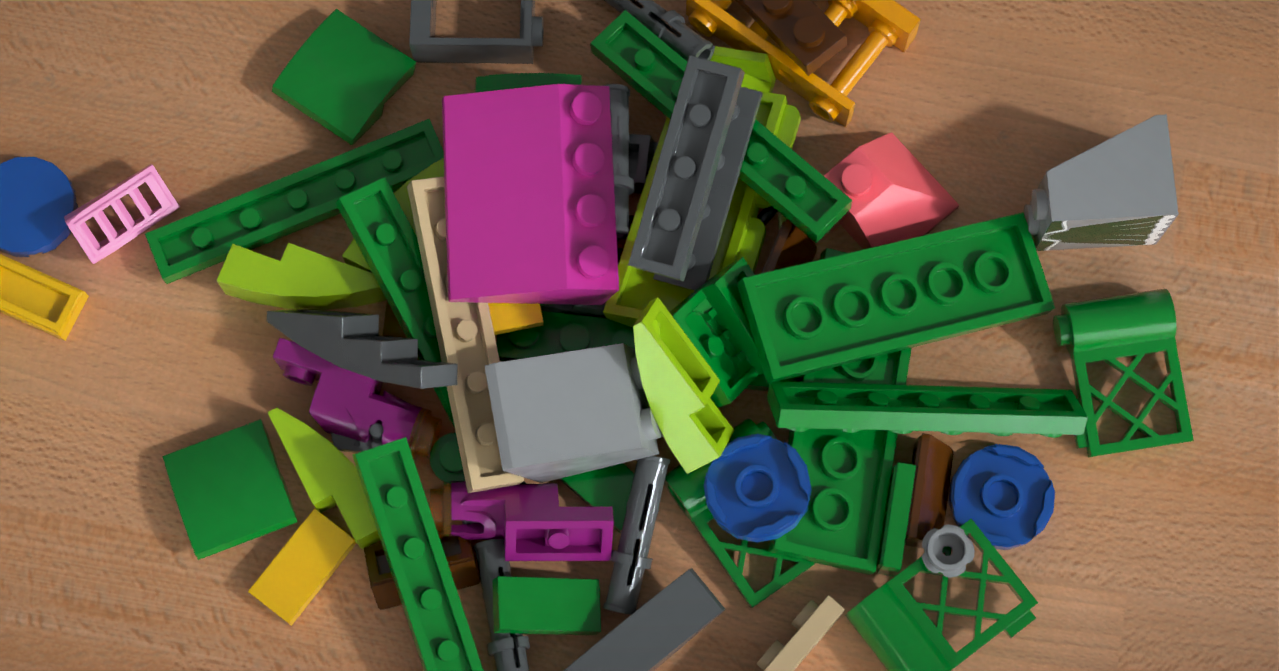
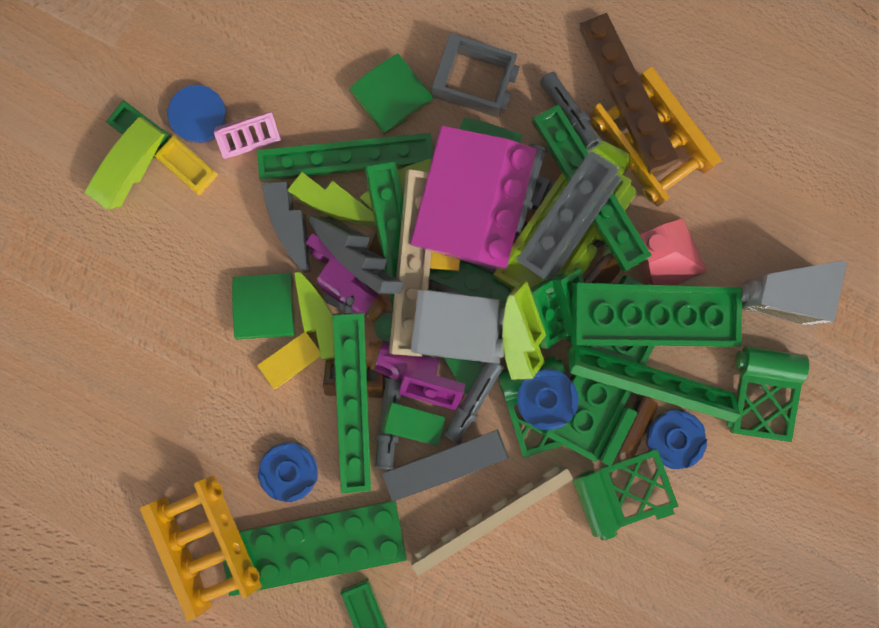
camera: 15 degrees right, 10 degrees up
(232, 336) = (288, 223): none -> dark grey slope
(961, 548) = (645, 470): light grey plate -> none

